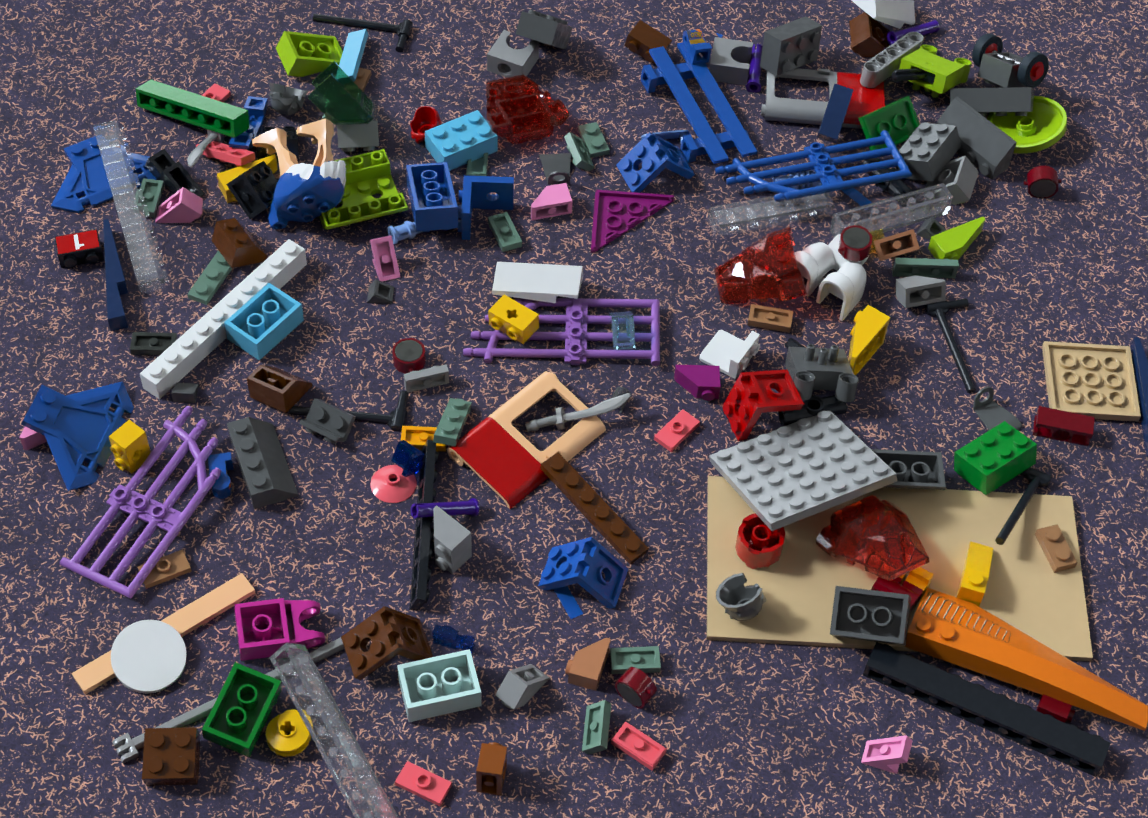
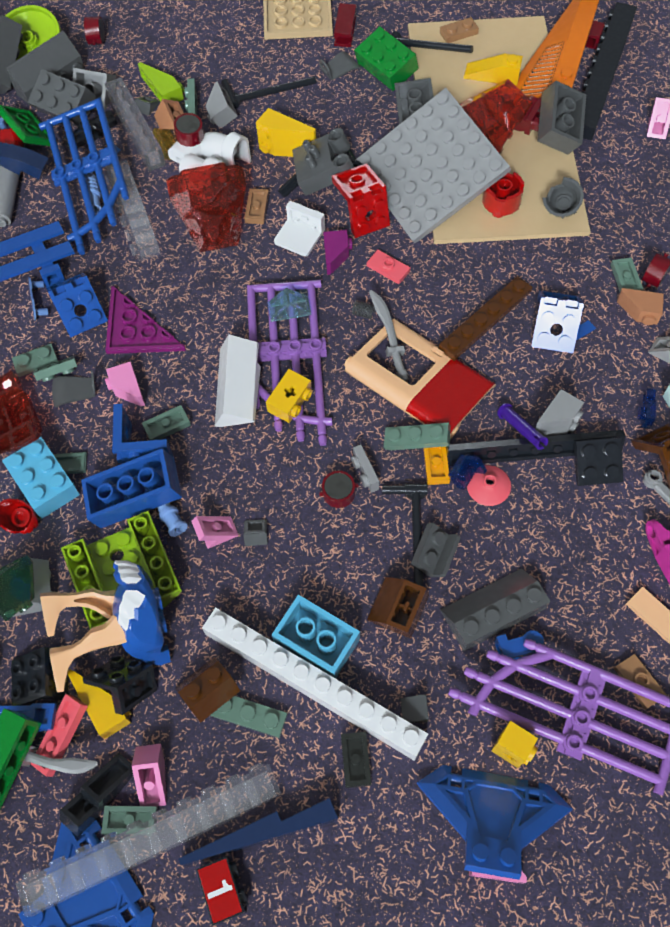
camera: 90 degrees left, 10 degrees up
(395, 574) = (598, 461): none -> black plate

